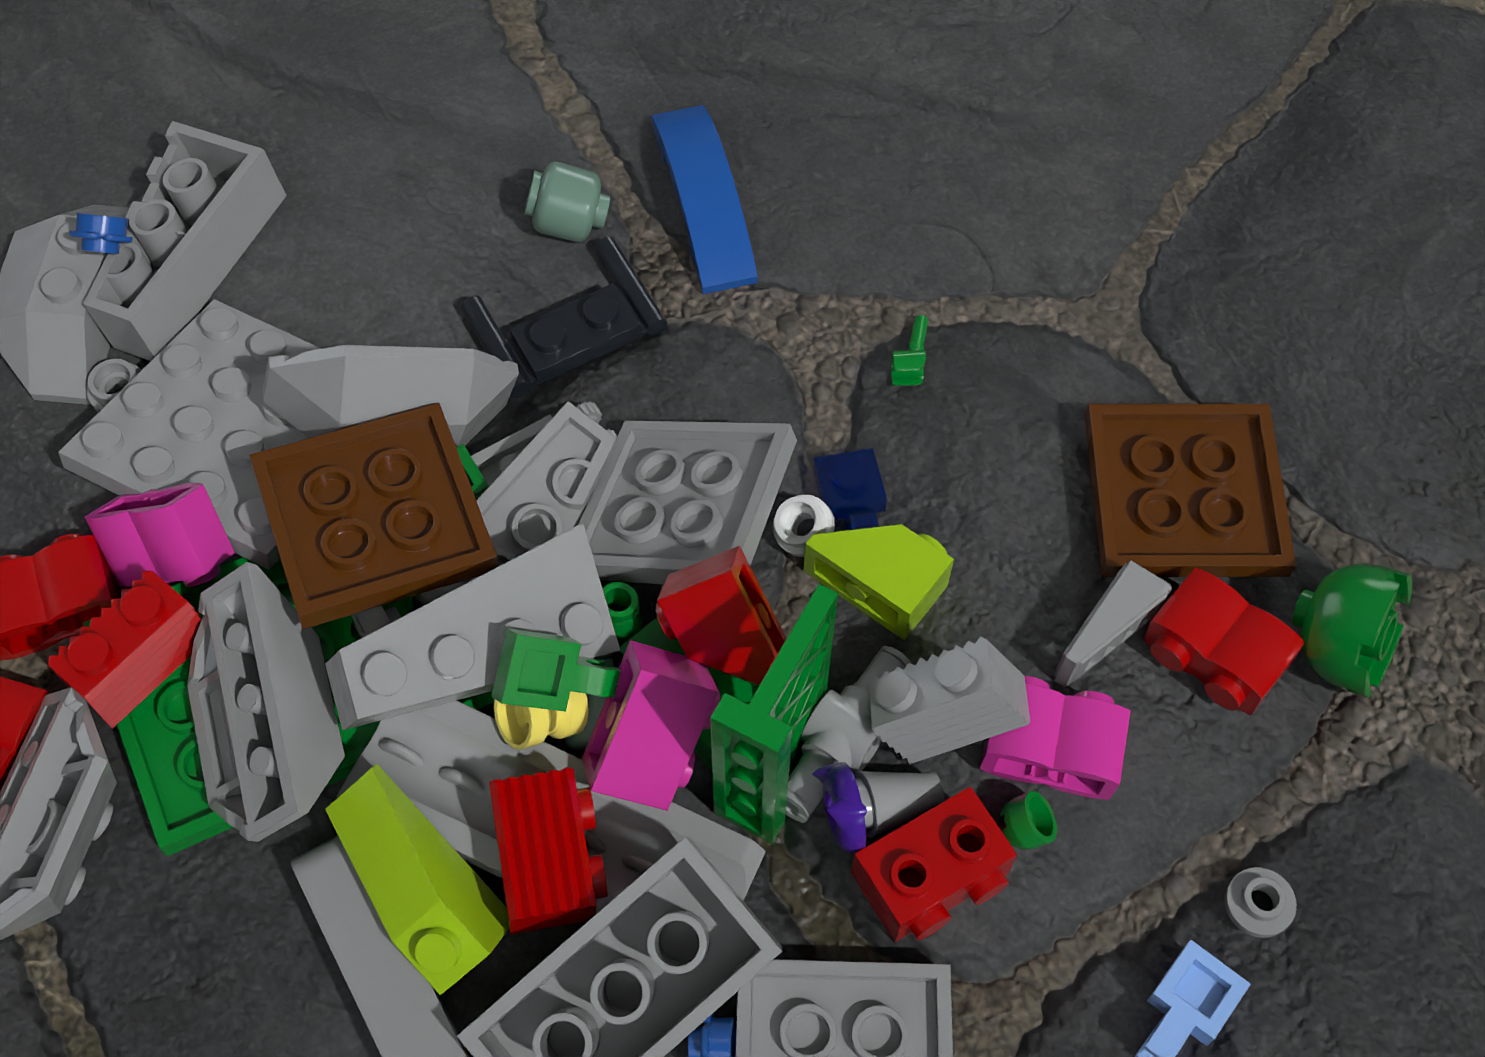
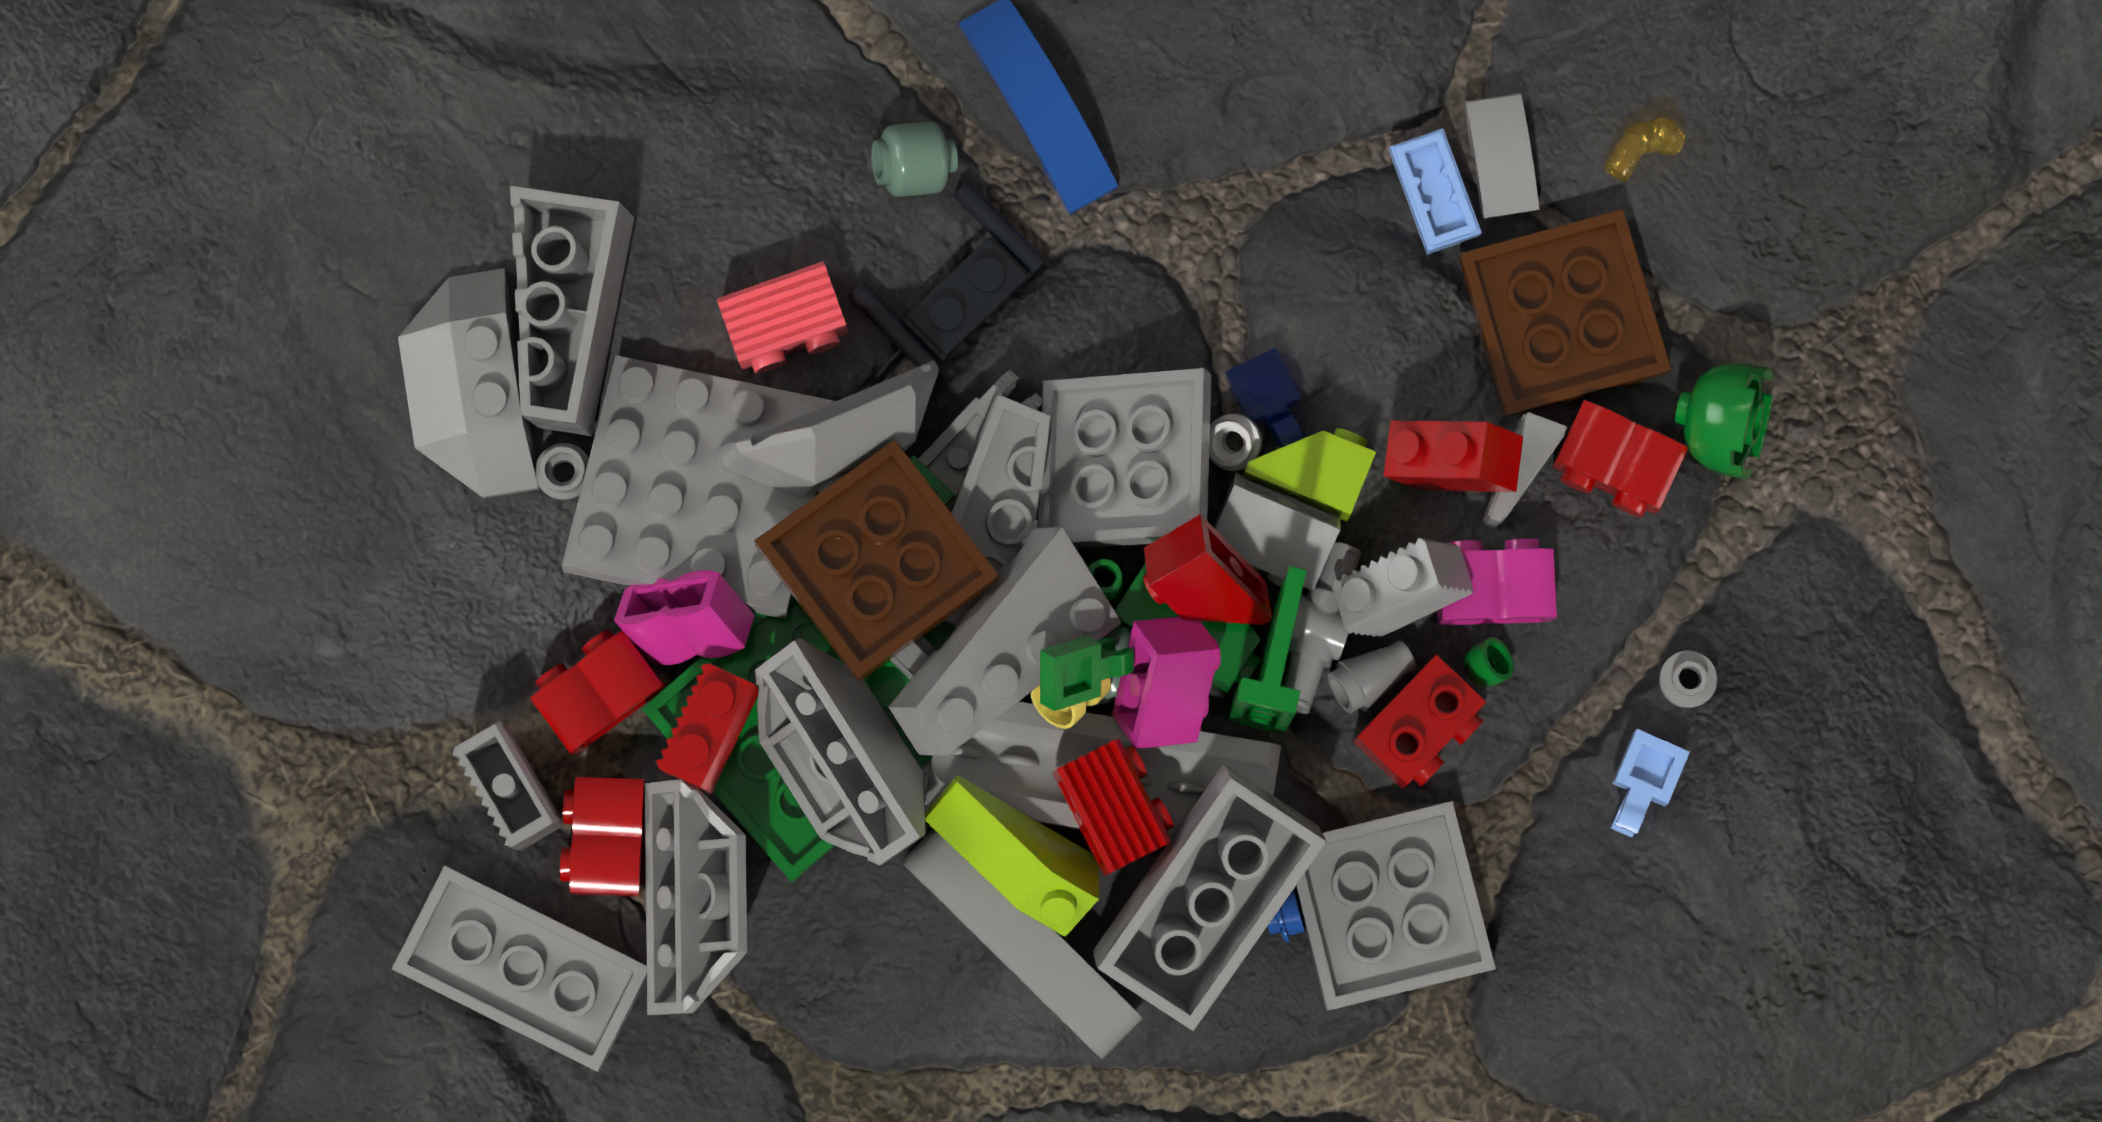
camera: 15 degrees left, 20 degrees up
(101, 232) = (514, 342): blue plate -> none
(387, 302) = (783, 318): none -> coral brick
(843, 806) = (1337, 699): dark purple piece -> none
(859, 624) = (1276, 530): none -> light grey brick
(909, 364) = (1285, 249): green hand -> none
(1040, 582) = (1453, 456): none -> red brick
(1074, 349) = (1435, 191): none -> light blue plate
(1150, 335) = (1501, 155): none -> light grey slope
(1293, 354) = (1640, 139): none -> clear yellow arm

